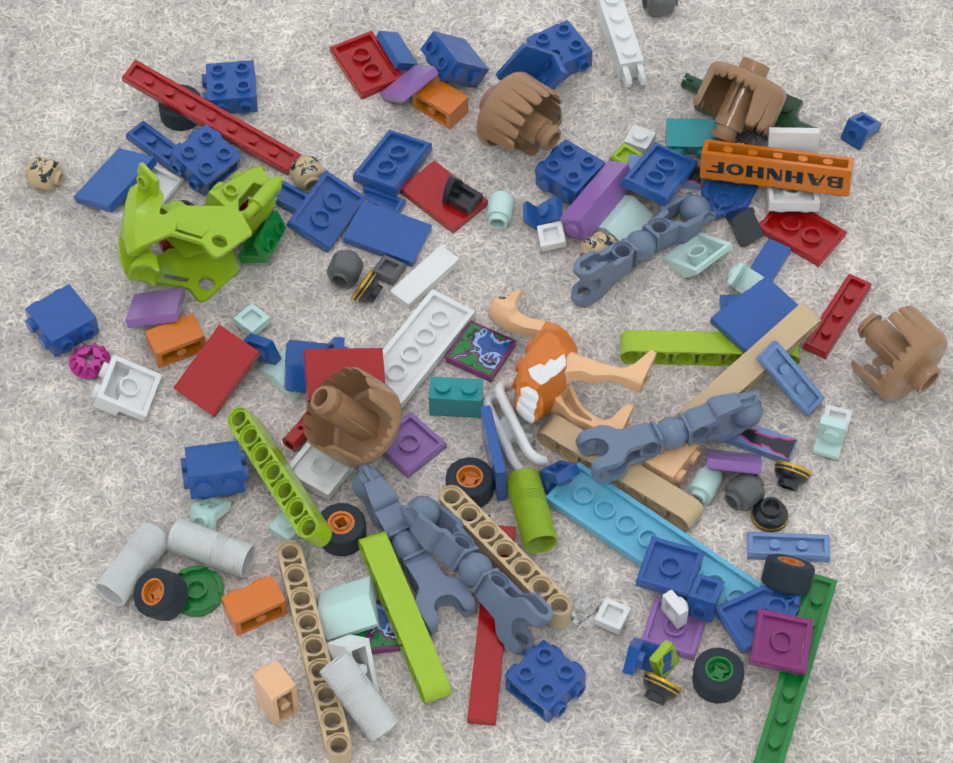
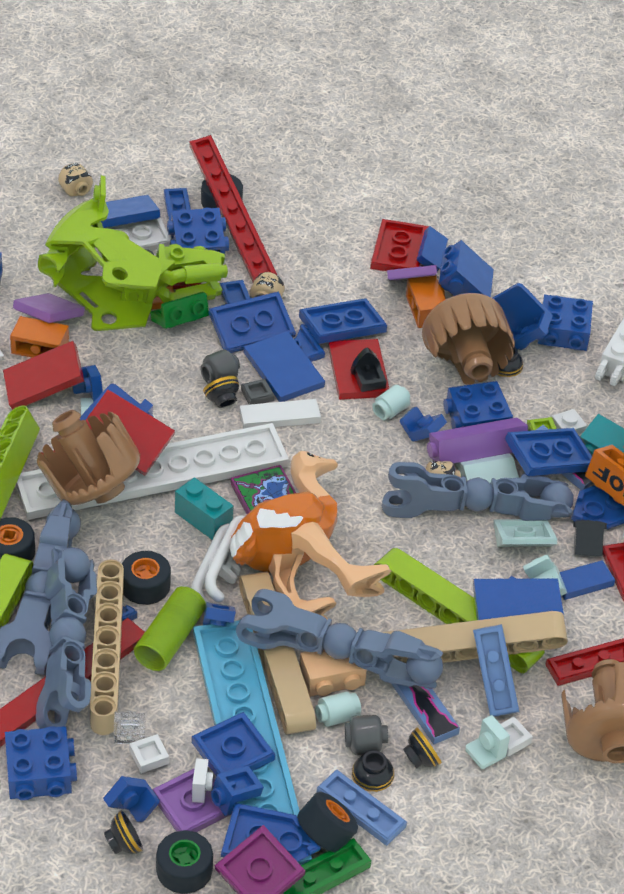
camera: 35 degrees right, 10 degrees down
(231, 86) = (275, 202): blue brick -> none
(252, 320) = (112, 361): light aqua plate -> none
(413, 446) = (133, 522): medium lavender tile -> none
(494, 452) = (183, 561): blue tile -> none
(551, 236) = (412, 446): white plate -> none
(664, 659) = (152, 816): lime tile -> none
(734, 461) = (379, 703): medium lavender tile -> none

